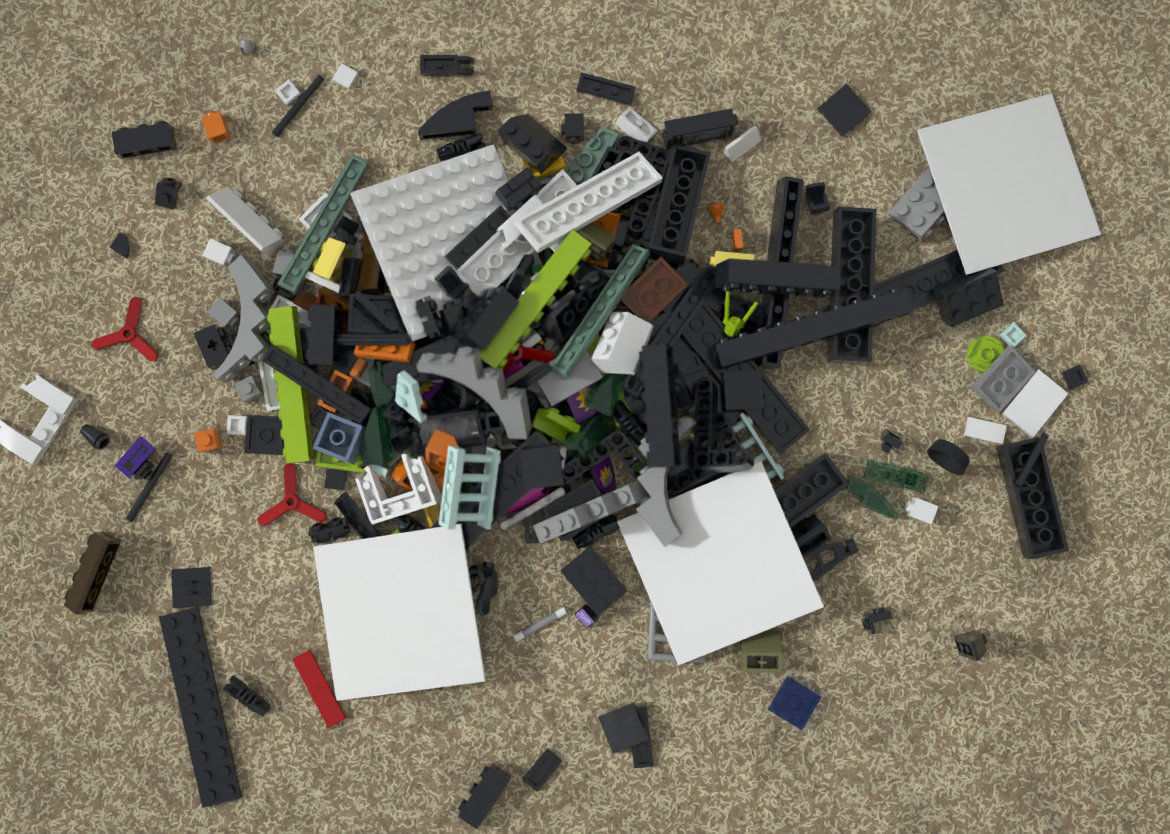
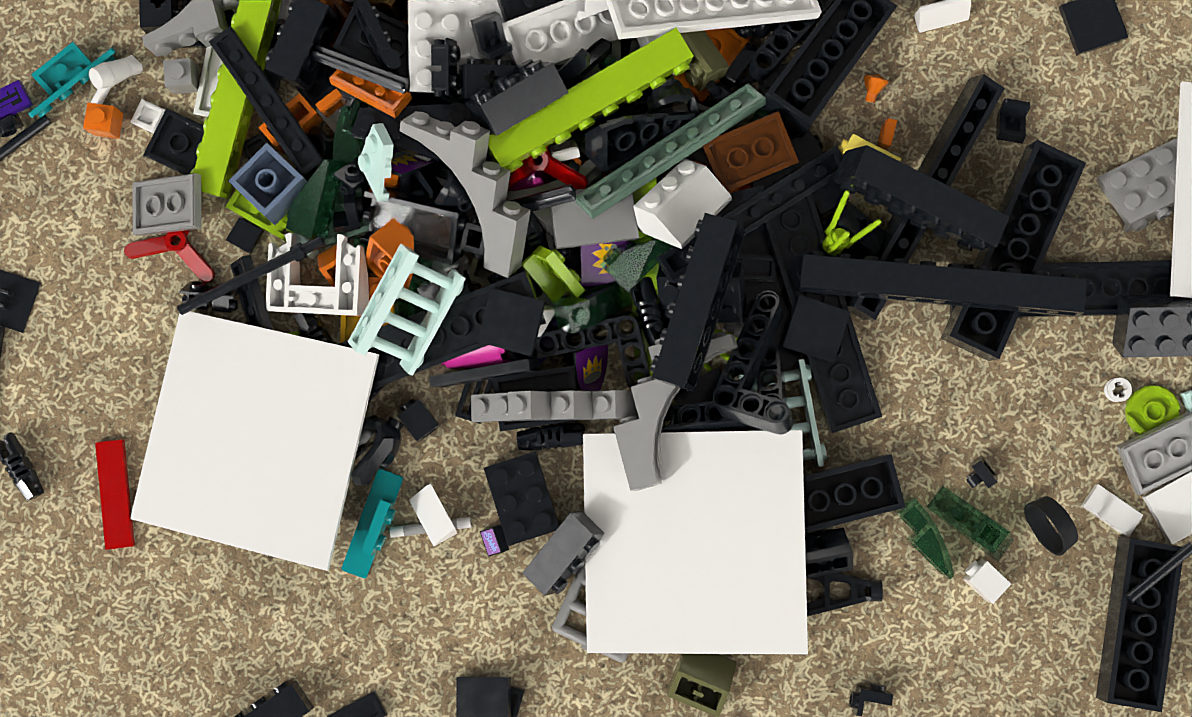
camera: 25 degrees right, 0 degrees up
(168, 417) = (63, 72): none -> teal bracket
(201, 407) = (111, 73): none -> white piece
(275, 480) = (167, 205): none -> light grey tile
(378, 477) = (297, 252): none -> black bar
(500, 638) = (372, 523): none -> teal bracket
(502, 556) = (418, 419): none -> black brick
(538, 616) = (432, 515): none -> white slope
(636, 606) = (563, 553): none -> brick
(963, 349) = (1125, 394): none -> white bush

